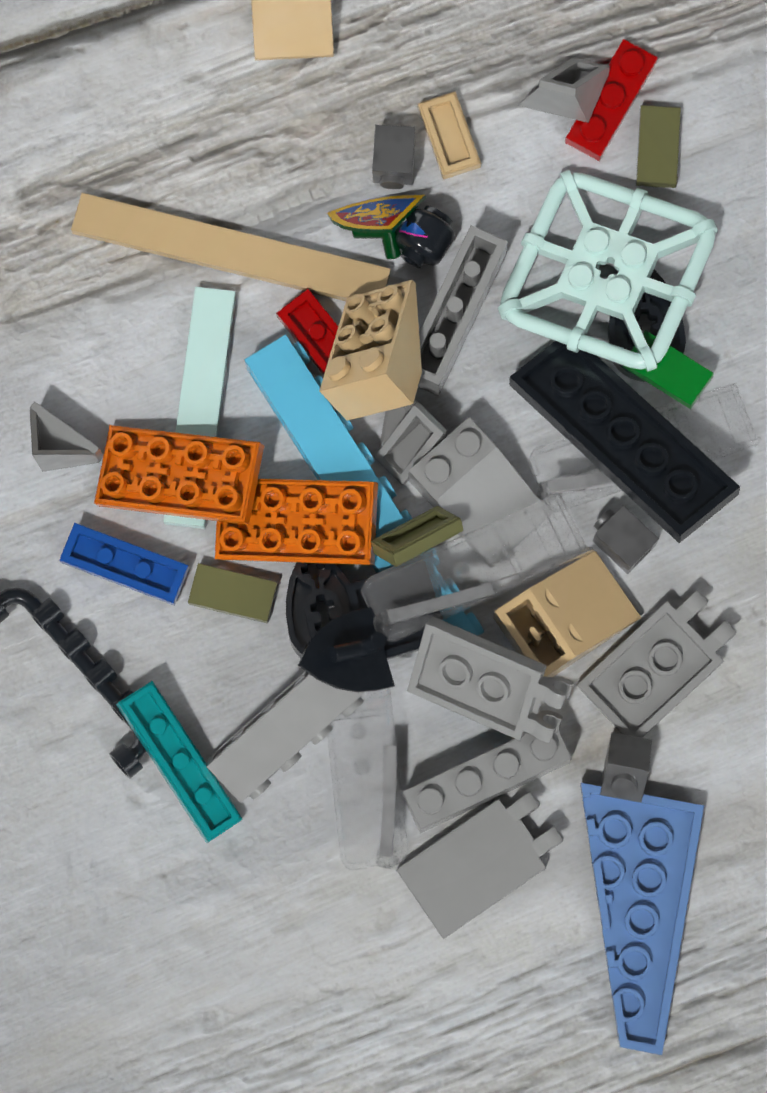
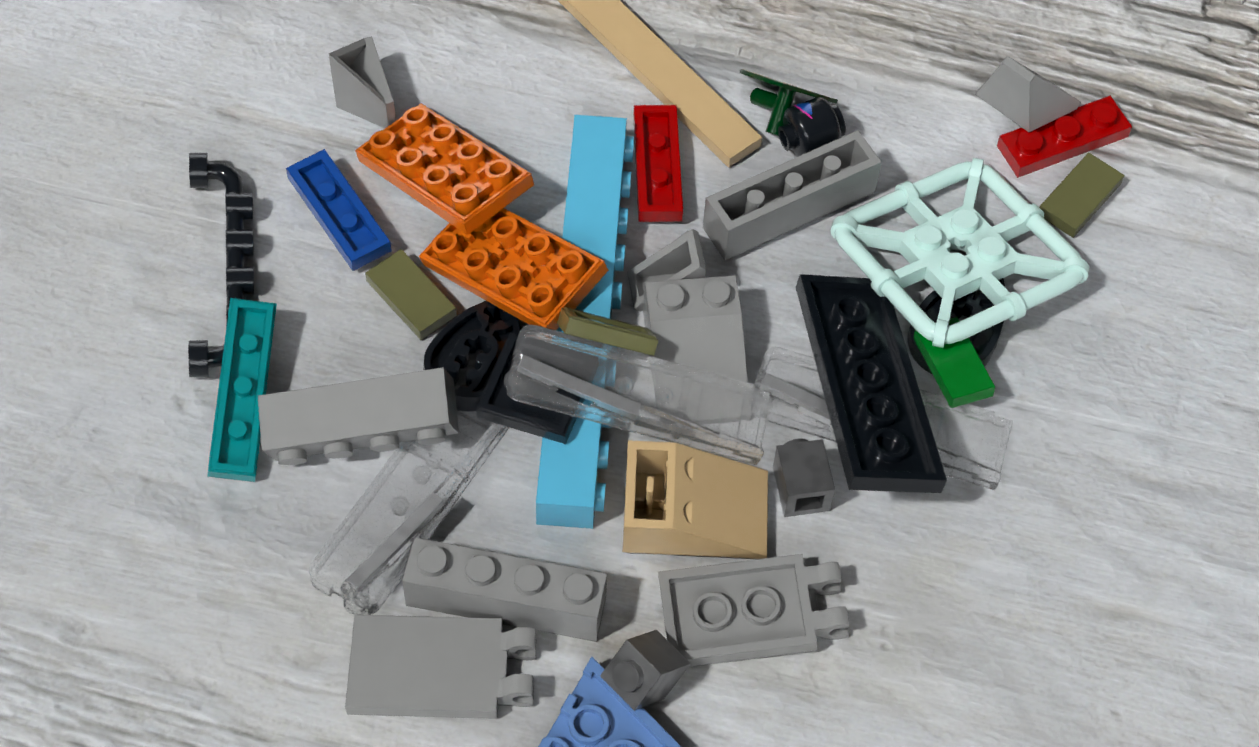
camera: 30 degrees right, 20 degrees down
(204, 371) = (533, 118): light aqua tile -> none
(349, 654) = (460, 380): black shield -> none
(375, 353) = (687, 170): tan slope -> none
(393, 156) = (834, 57): flat silver brick -> none
(449, 135) = (895, 77): tan tile -> none
(487, 682) = (568, 488): light grey tile -> none

